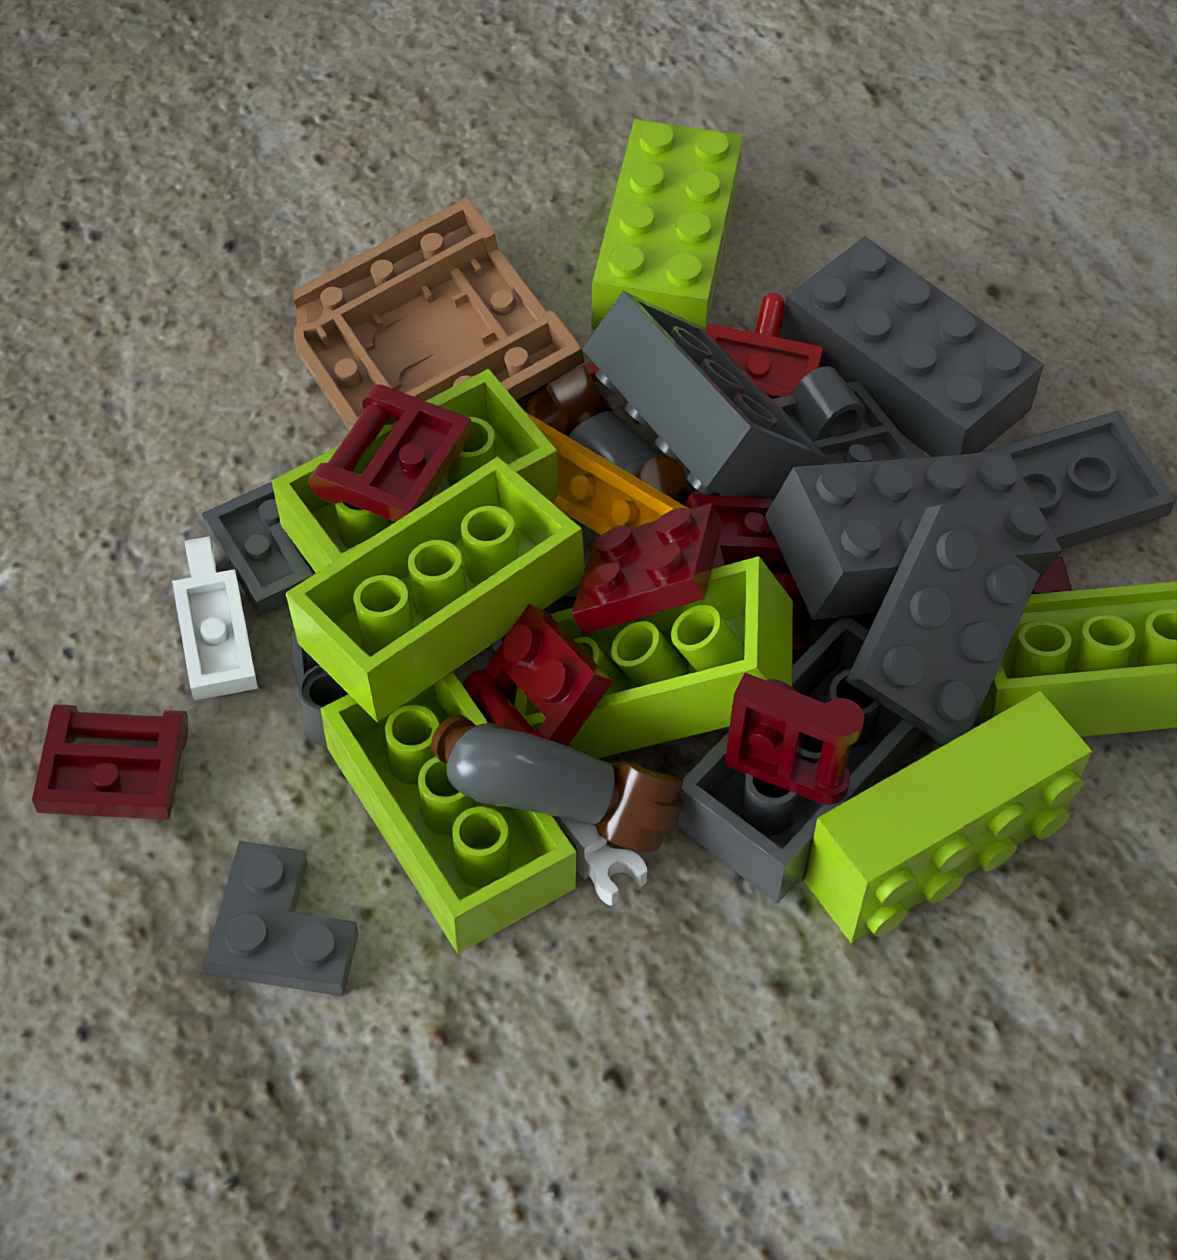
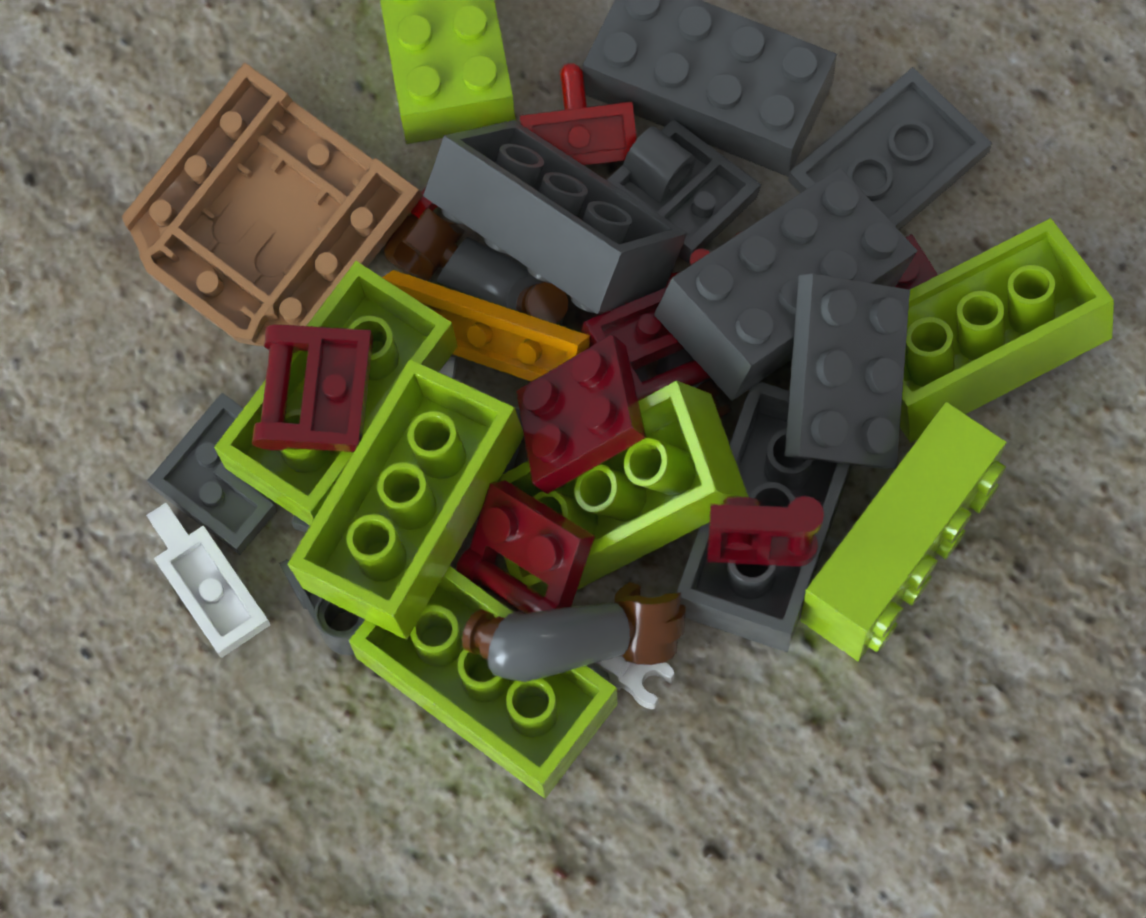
camera: 15 degrees left, 15 degrees up
(110, 777) = (183, 760): dark red plate -> none
(262, 935) = (376, 847): dark grey plate -> none

